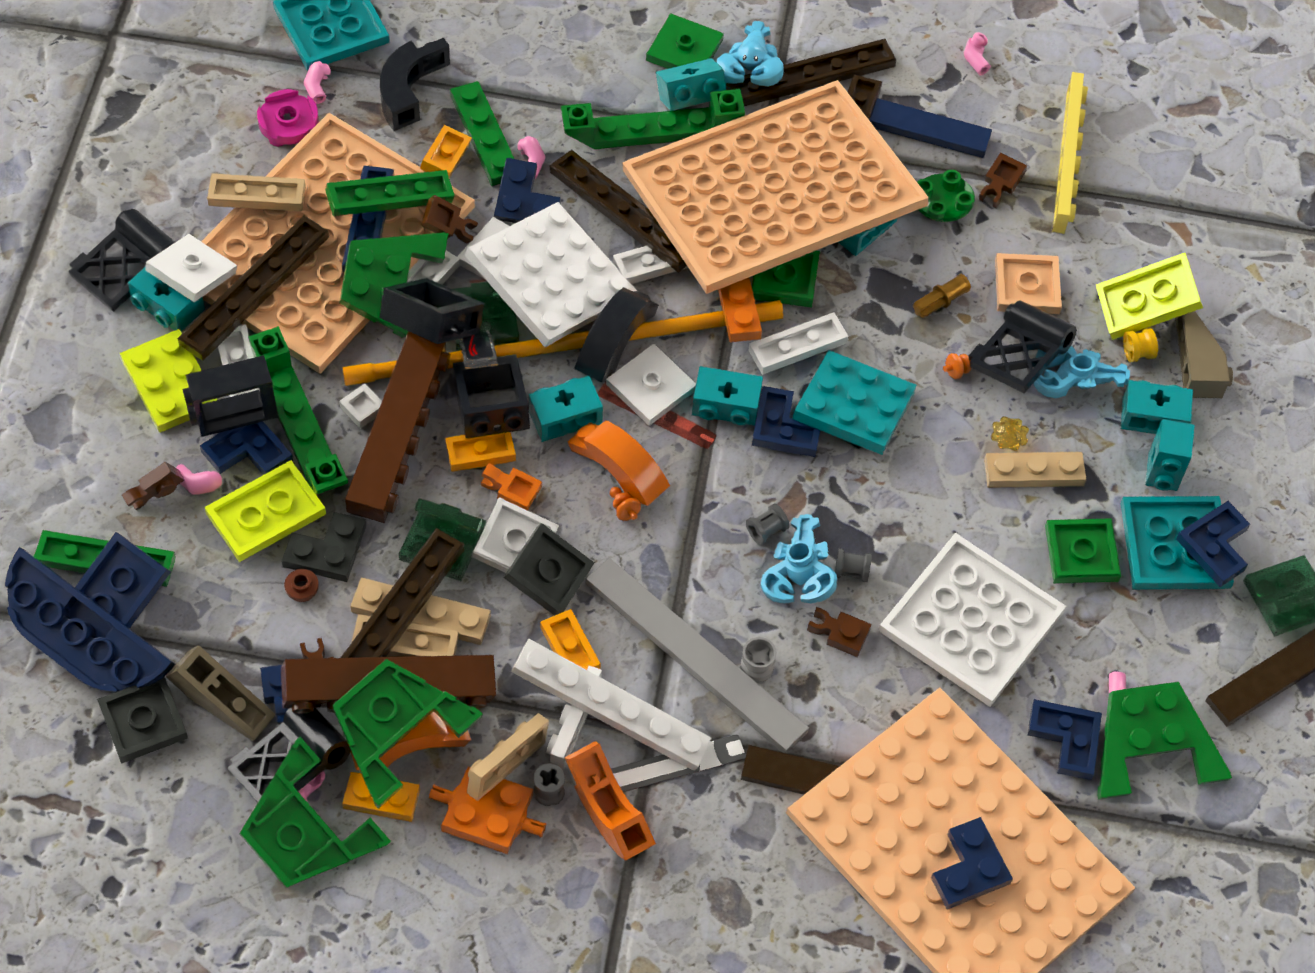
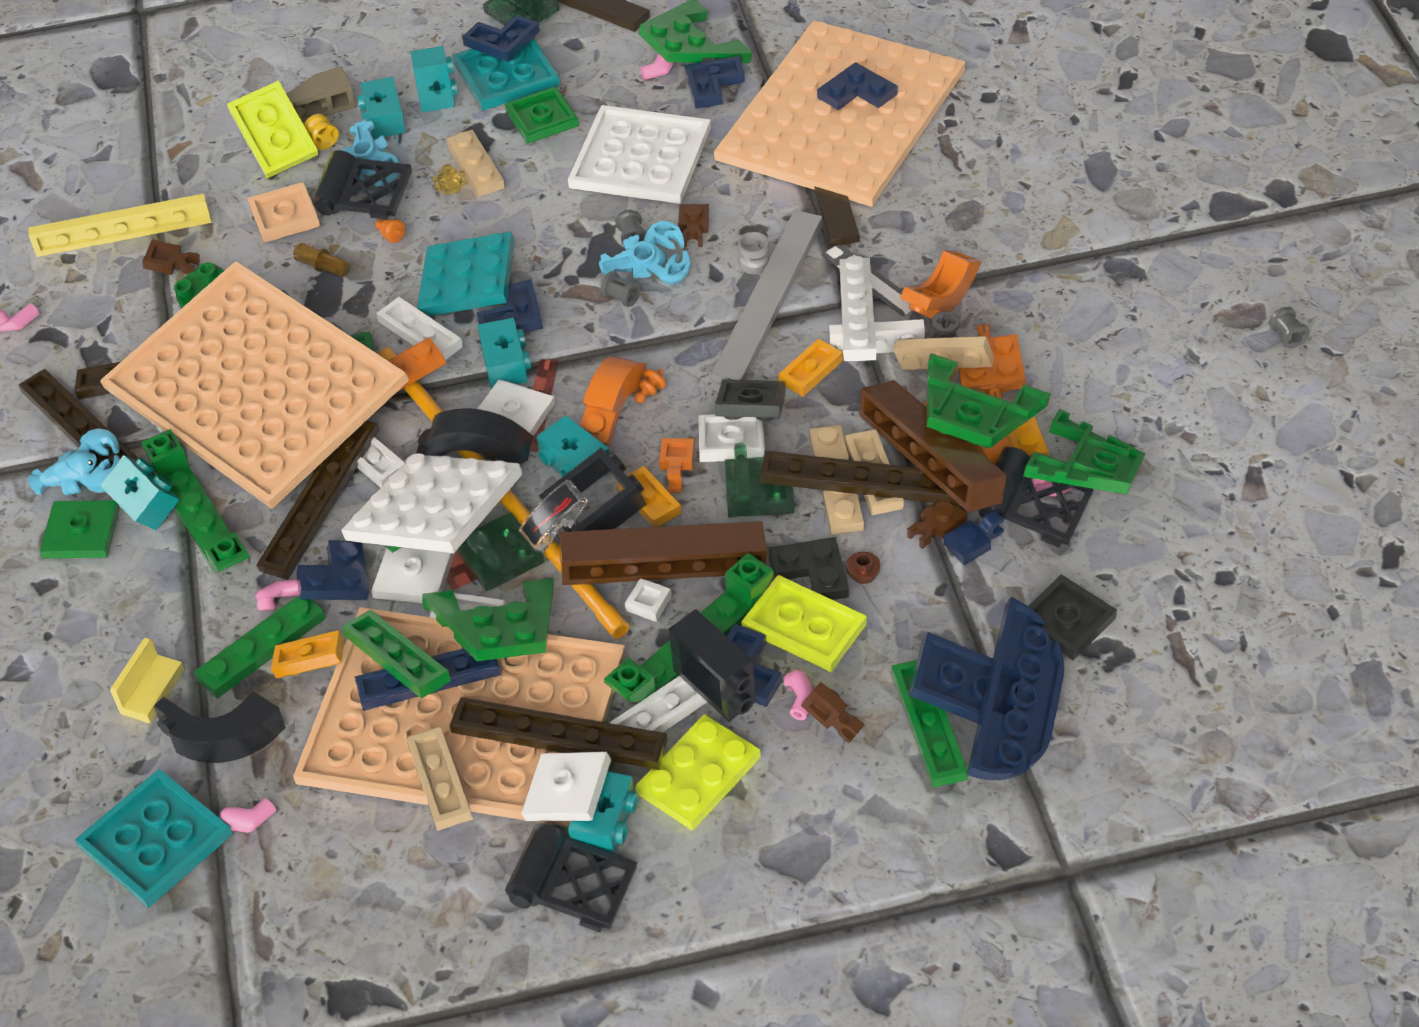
camera: 105 degrees left, 10 degrees down
(220, 693) = (1006, 572): dark tan slope -> none
(292, 131) = (314, 835): dark pink plate -> none
(431, 310) = (555, 536): black window -> none
(444, 217) = (402, 608): reddish brown plate -> none
(485, 49) = (145, 682): none -> light yellow panel
(930, 128) = (122, 320): dark blue tile -> none

